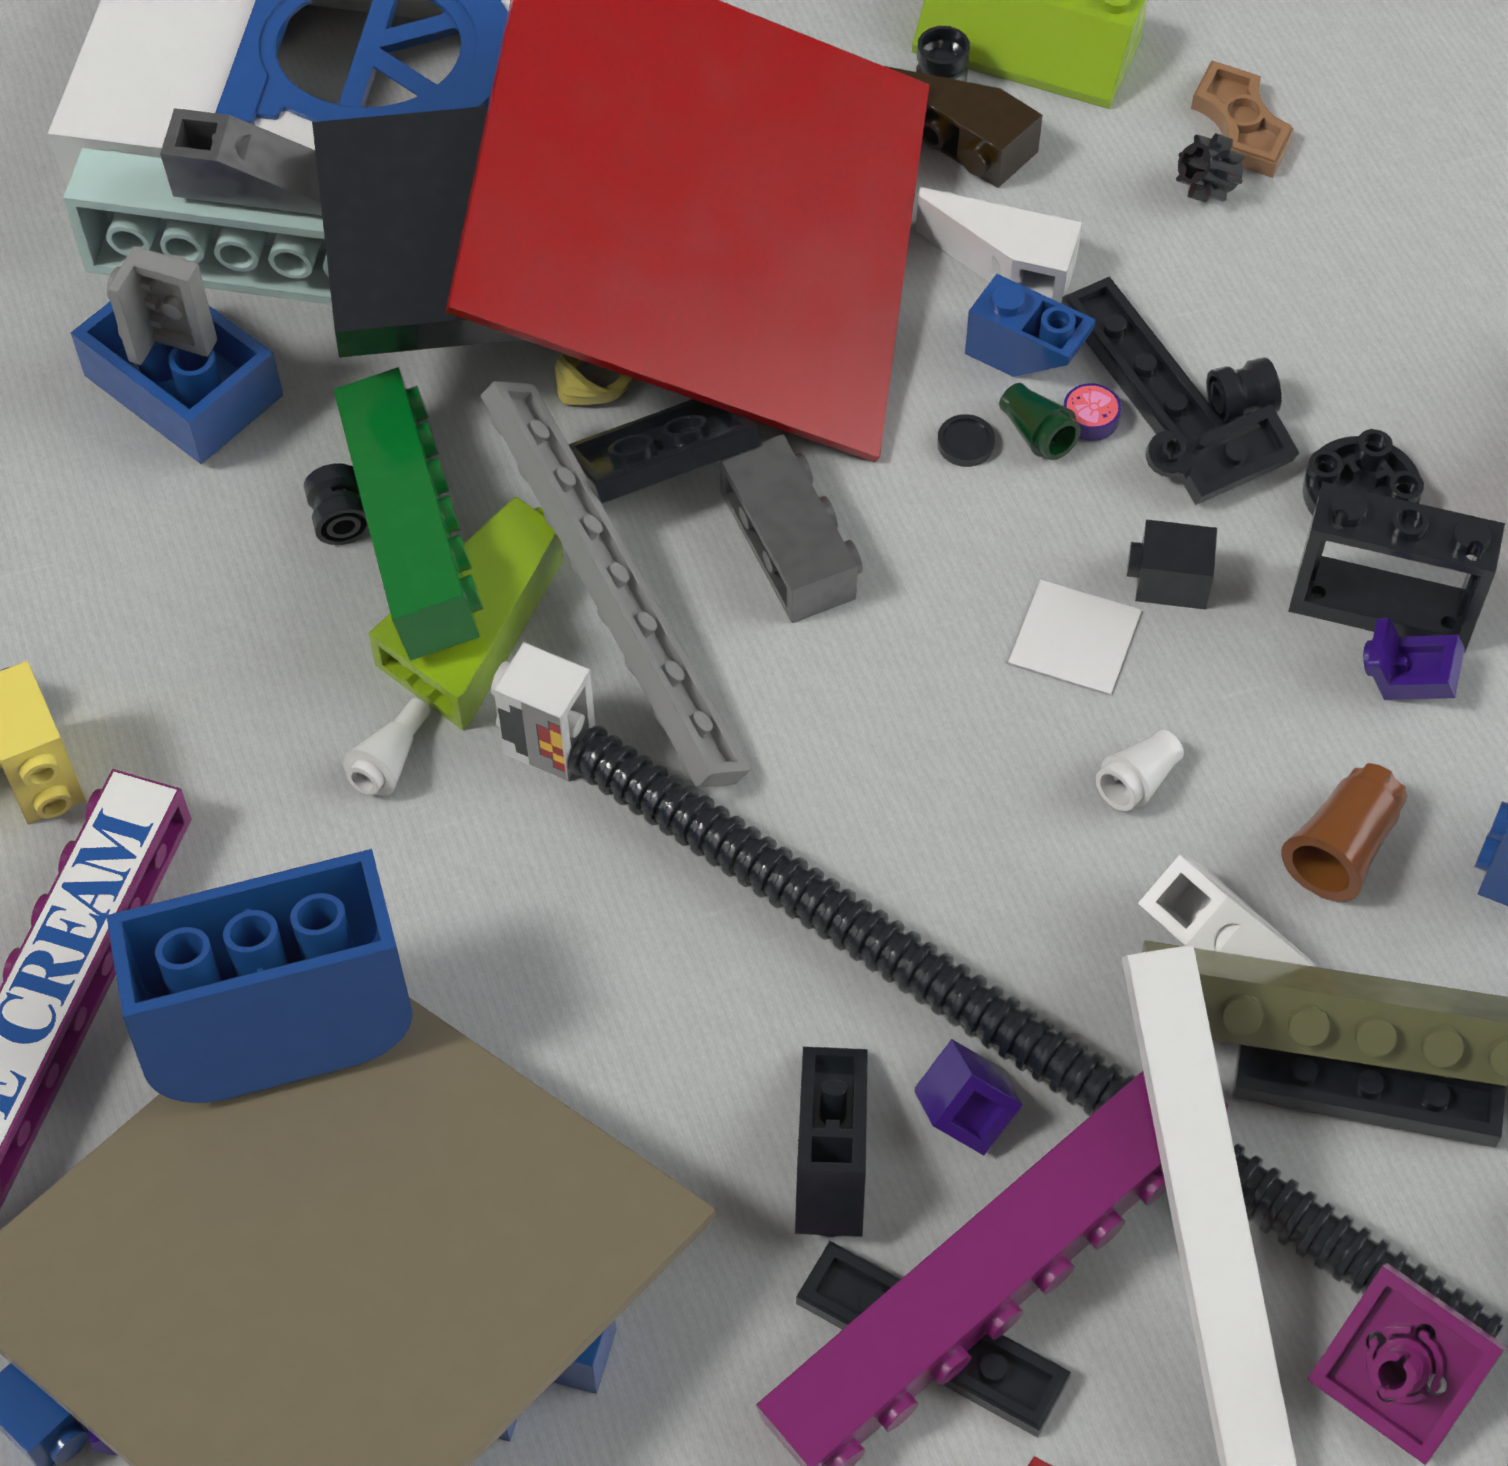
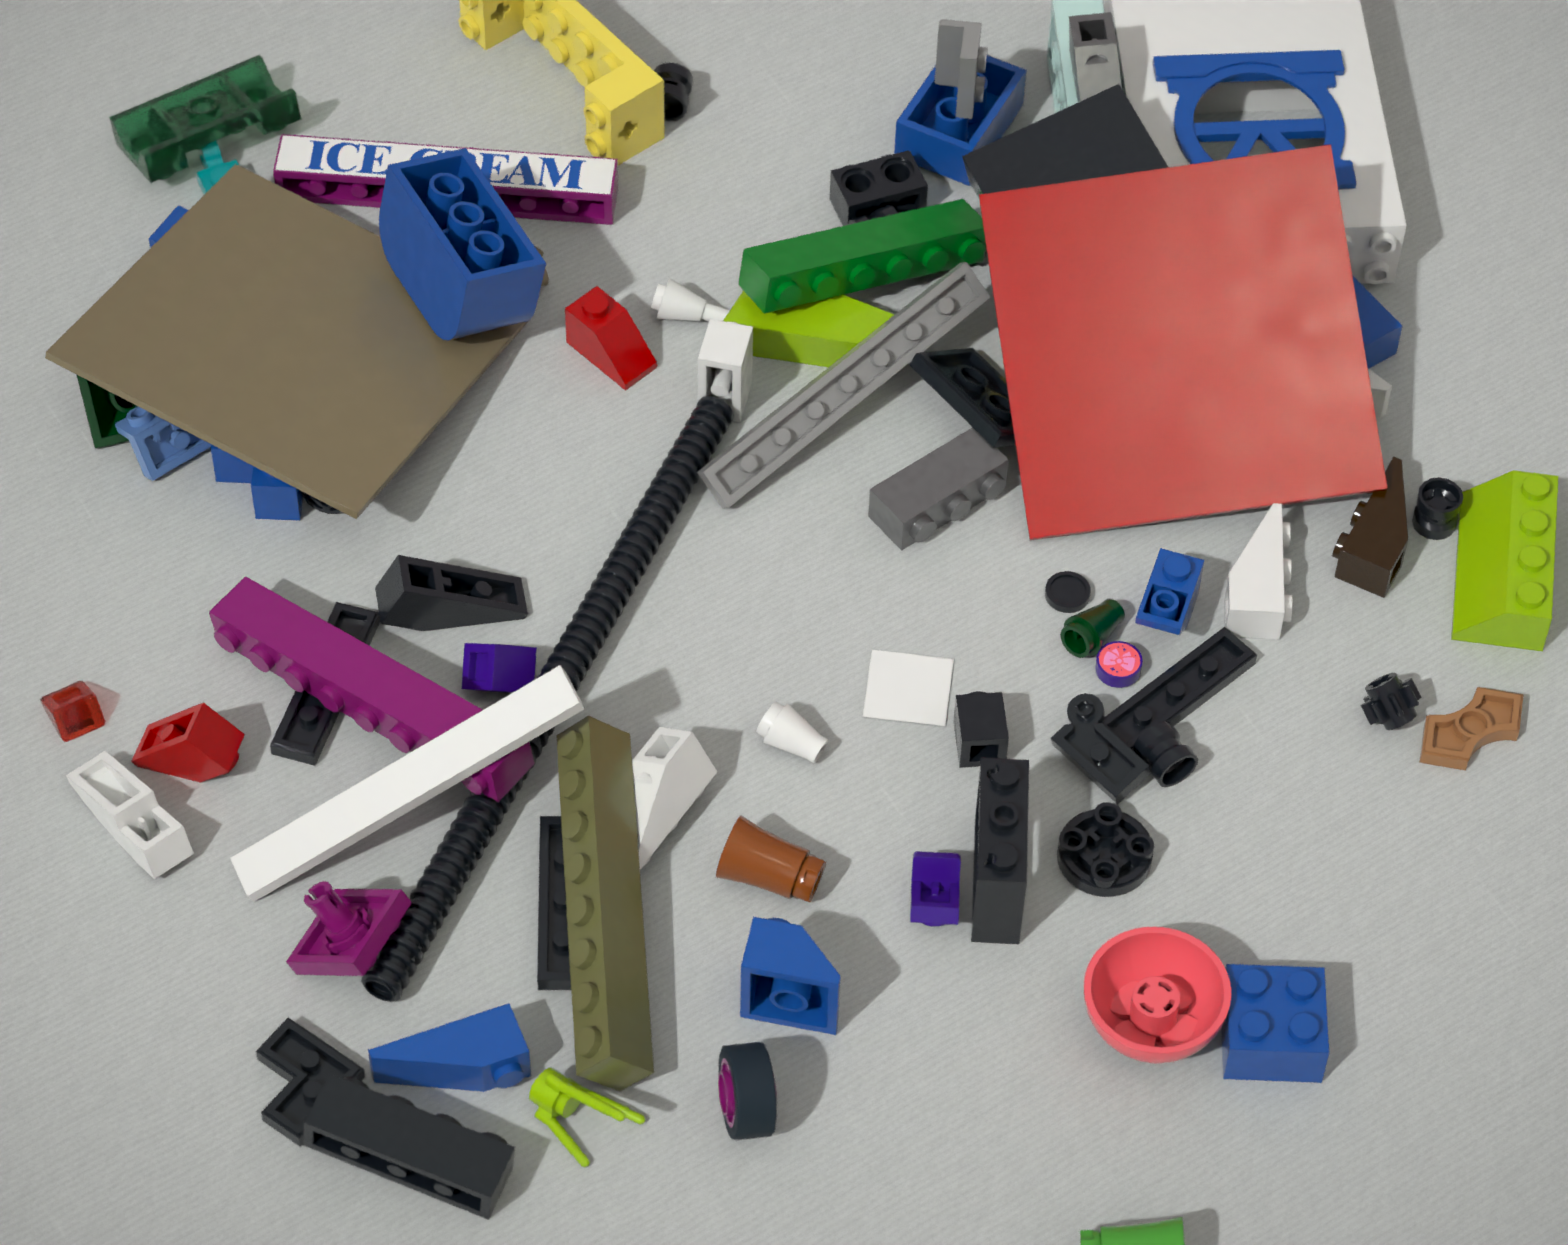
camera: 75 degrees right, 5 degrees down
(266, 488) = (875, 183): none -> black brick
(424, 851) = (608, 338): none -> red slope

